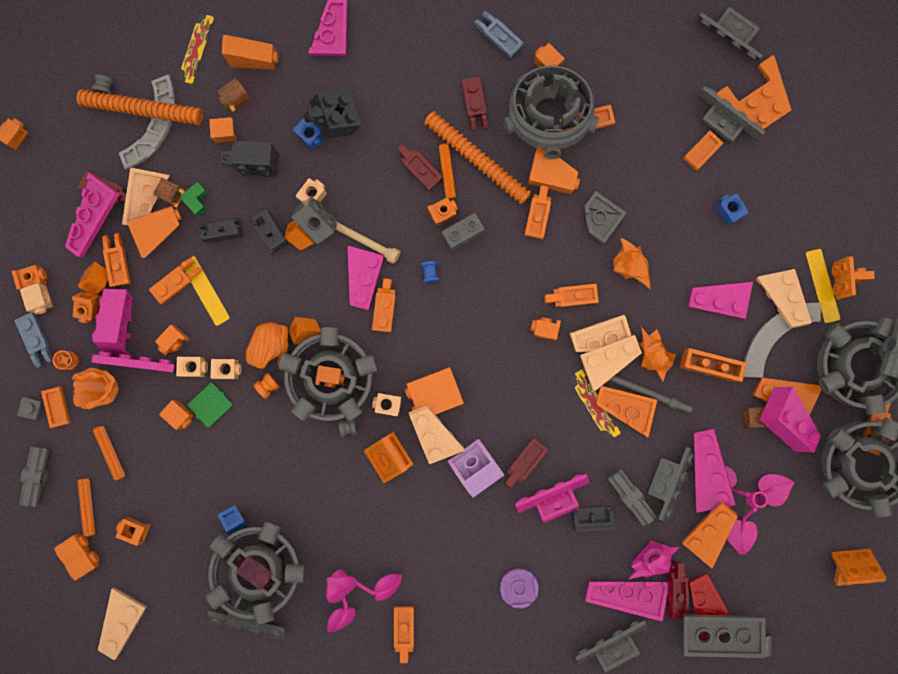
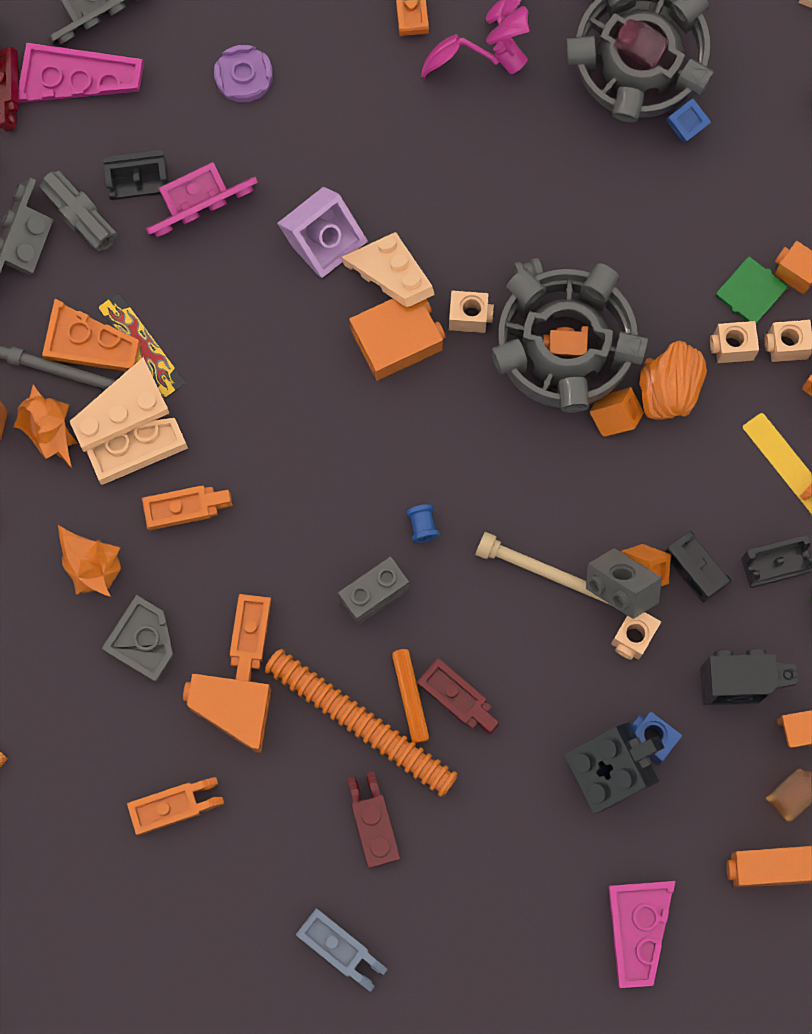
camera: 170 degrees right, 10 degrees down
(267, 385) = (665, 323): orange wheel -> none
(363, 276) = (532, 510): dark pink wing -> none
(384, 308) = (492, 462): orange hinge -> none
(388, 457) = (457, 234): orange bracket -> none
(440, 218) = (408, 637): orange brick -> none
(526, 462) = (244, 247): dark red hinge -> none
(540, 130) = (211, 853): dark grey piece -> none
(545, 328) = (226, 449): orange brick -> none
(548, 56) = (249, 908): orange brick -> none
(653, 560) = (42, 123): dark pink hair -> none

